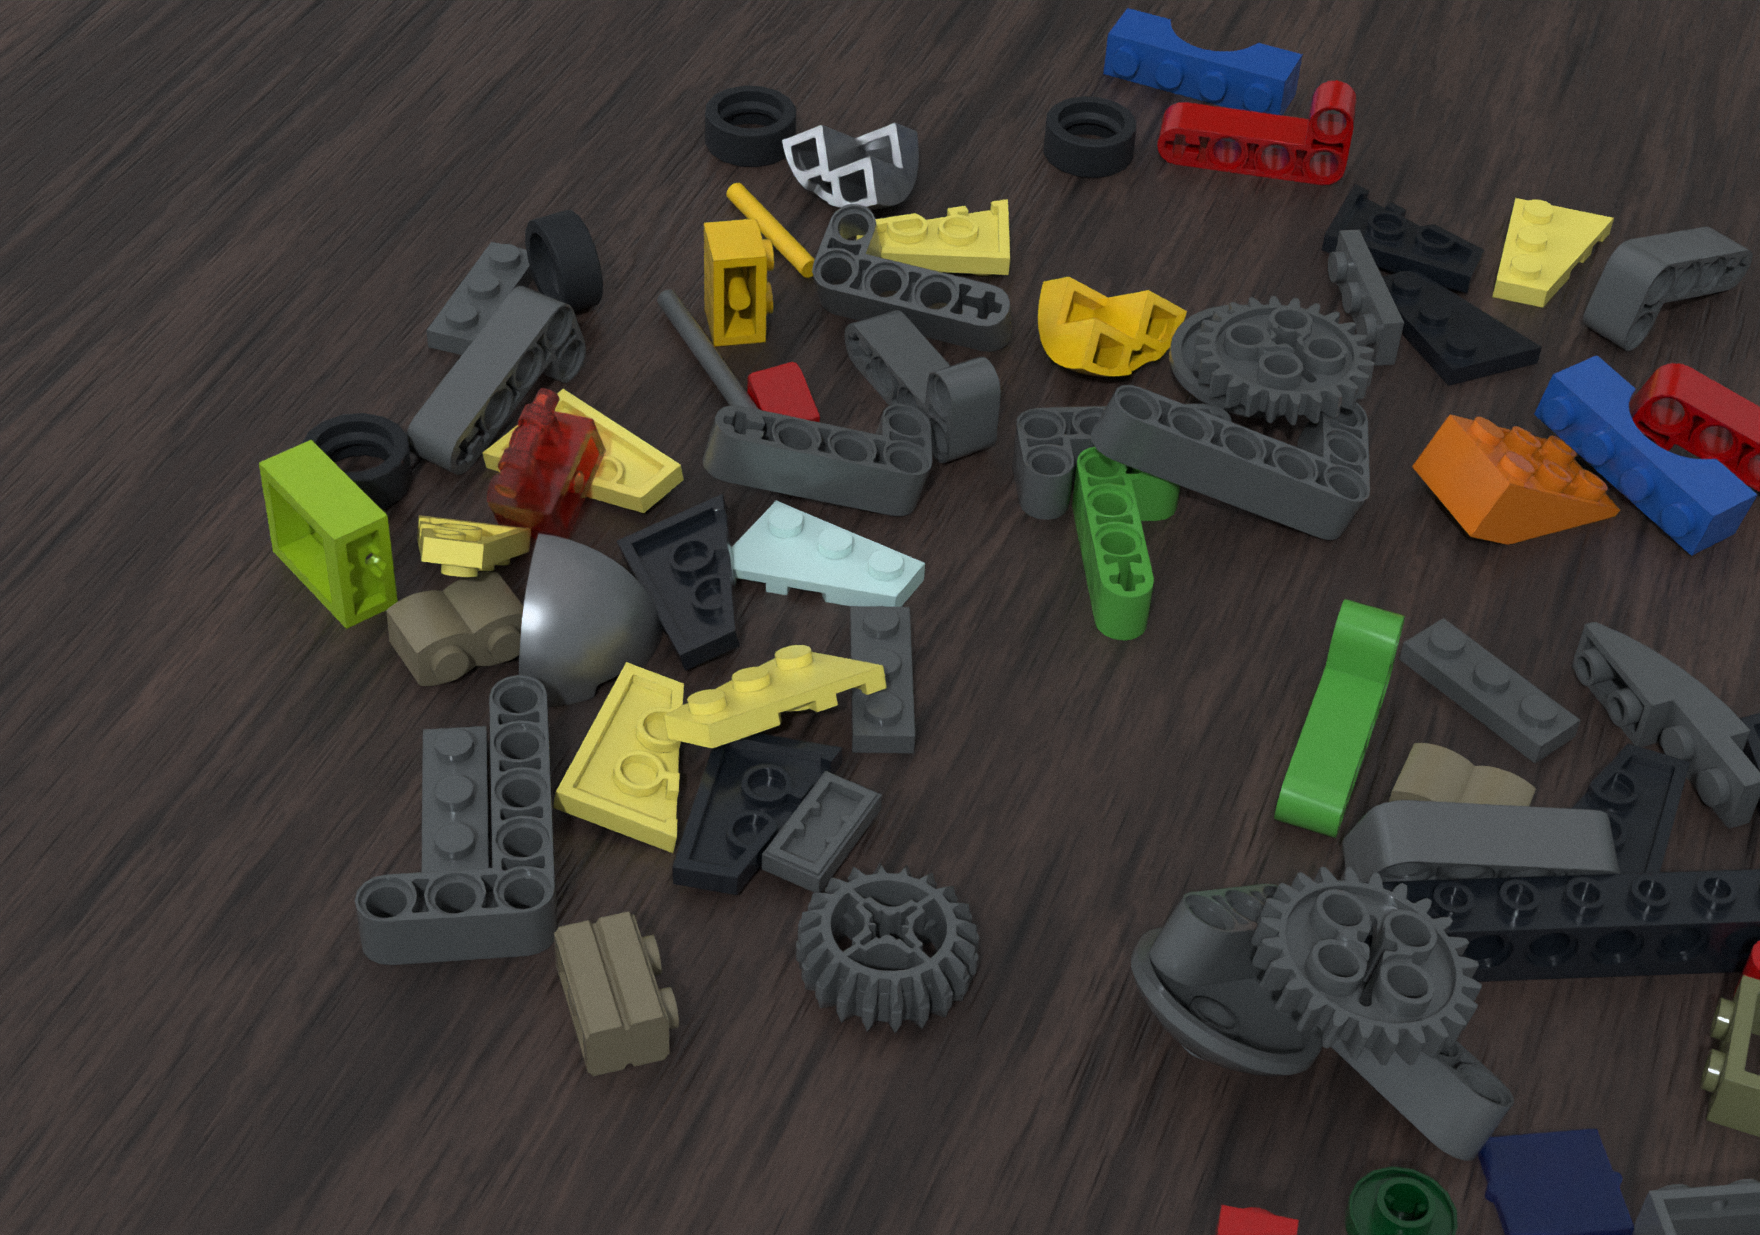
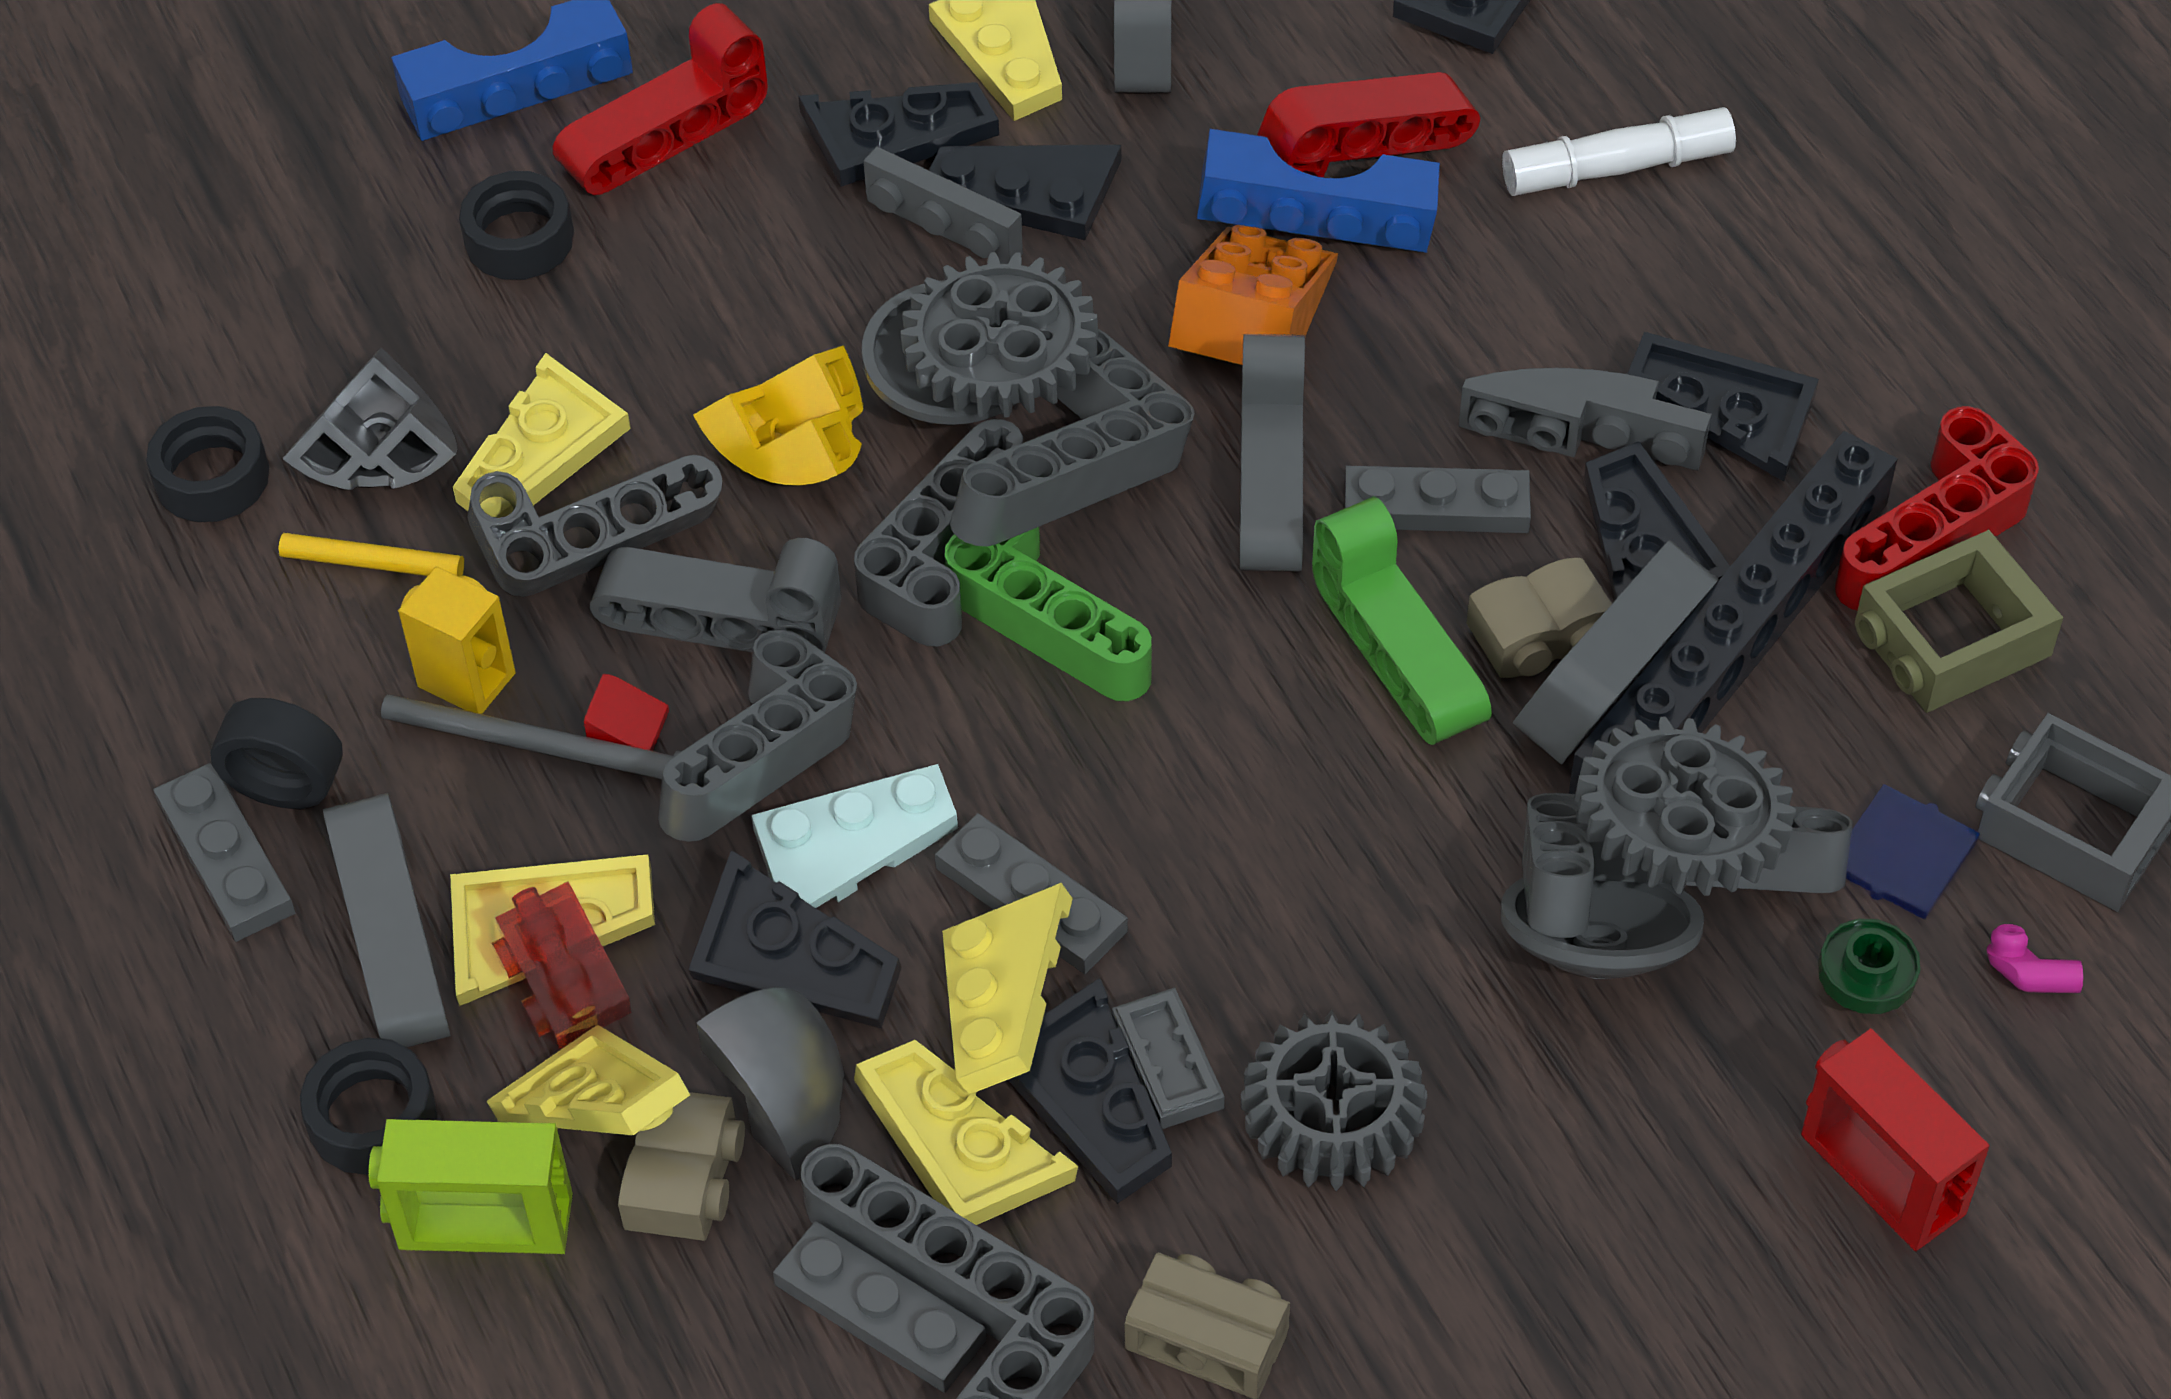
camera: 45 degrees left, 10 degrees up
(1404, 565) = (1272, 452): none -> dark grey beam

